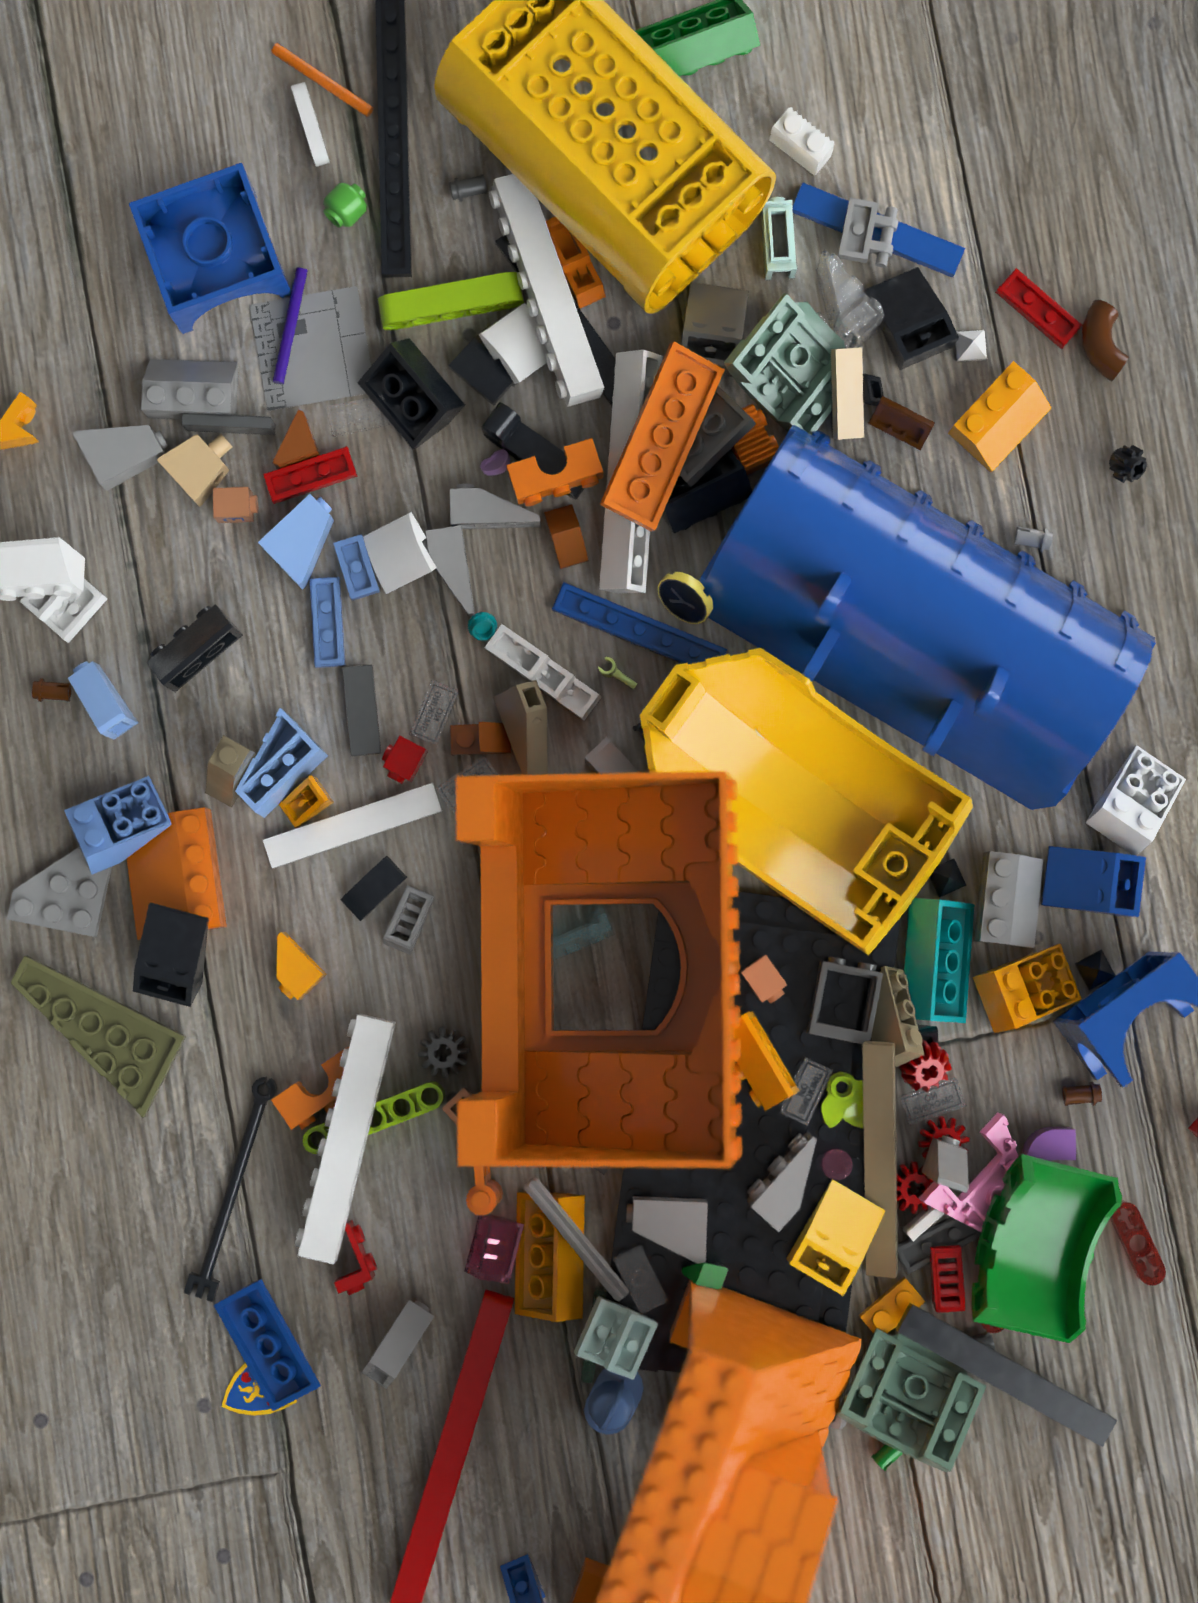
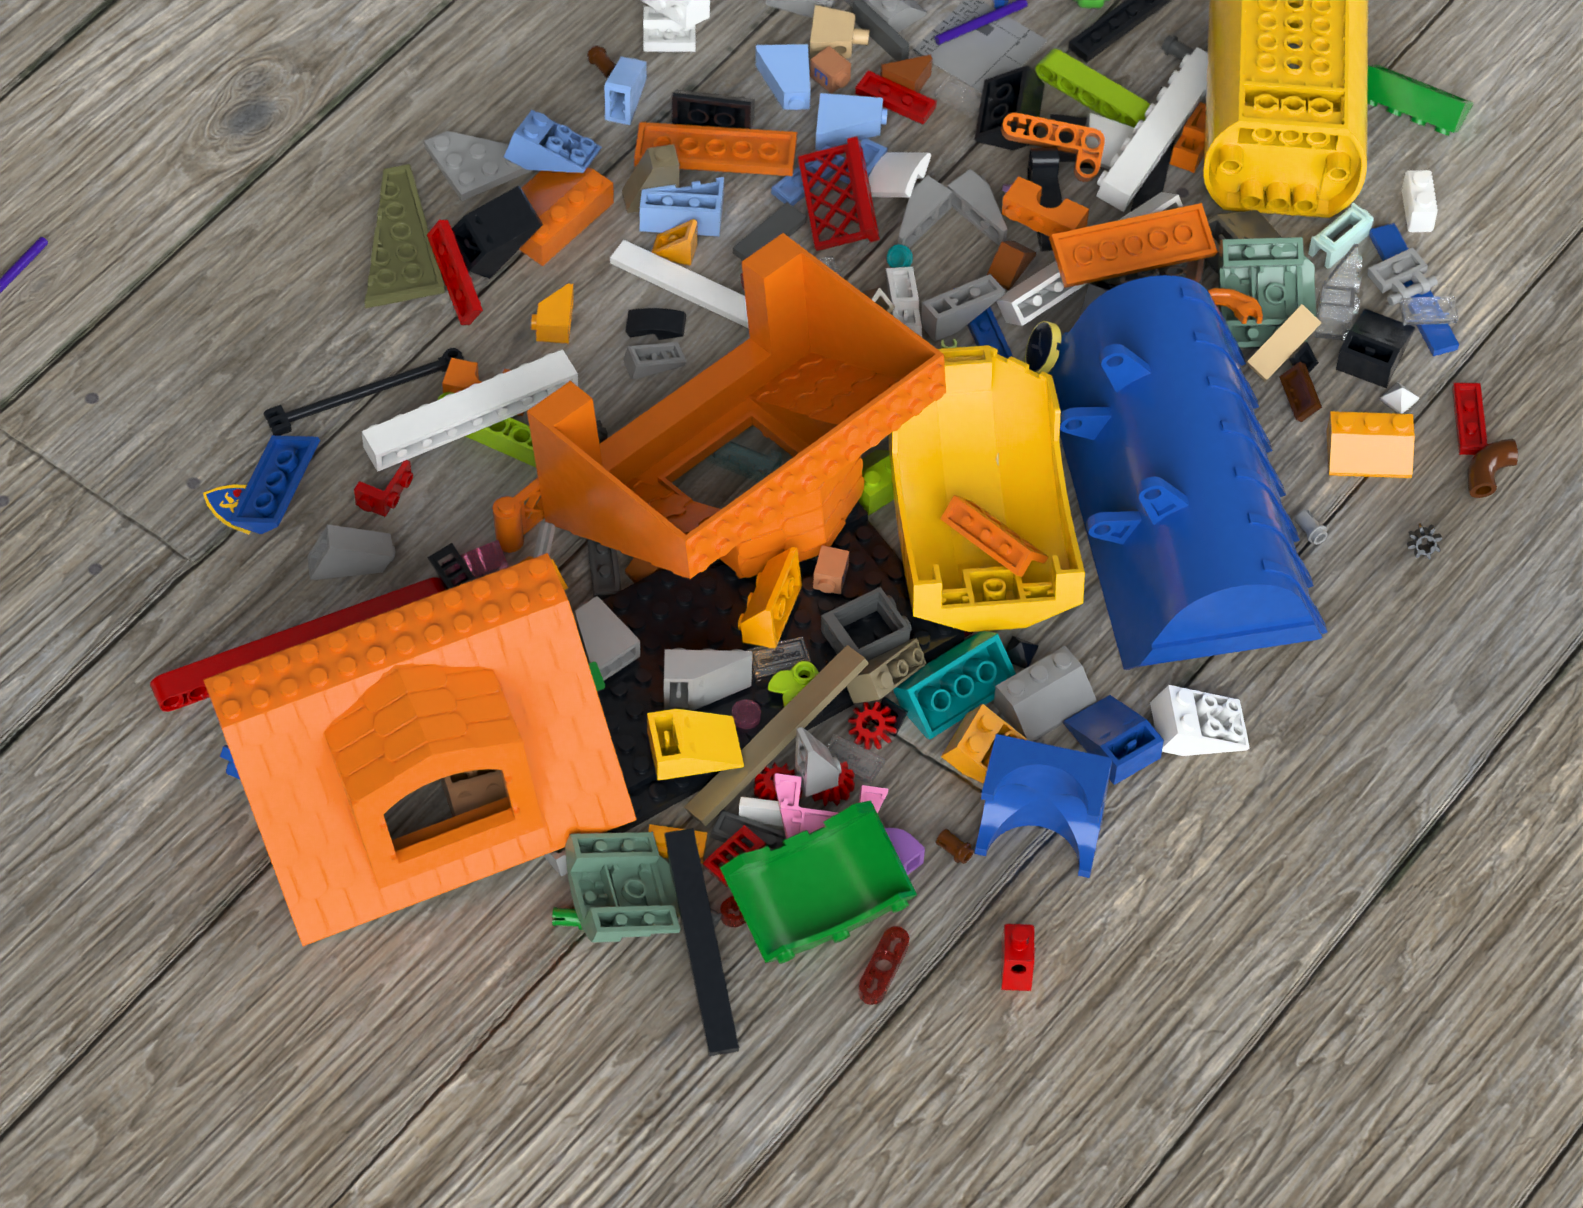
camera: 45 degrees right, 30 degrees down
(179, 1019) = (454, 272): none -> red plate
(206, 545) = (786, 73): none -> light blue slope
(234, 679) = (722, 148): none -> orange plate
(385, 597) = (861, 195): none -> red fence
(489, 399) = (1053, 128): none -> orange beam
(518, 1283) = (463, 568): none -> black slope
(583, 624) = (958, 307): none -> light grey slope
(781, 396) = (1238, 302): none -> orange piece
(842, 819) = (991, 535): none -> orange fence
(919, 243) = (1429, 310): none -> clear plate

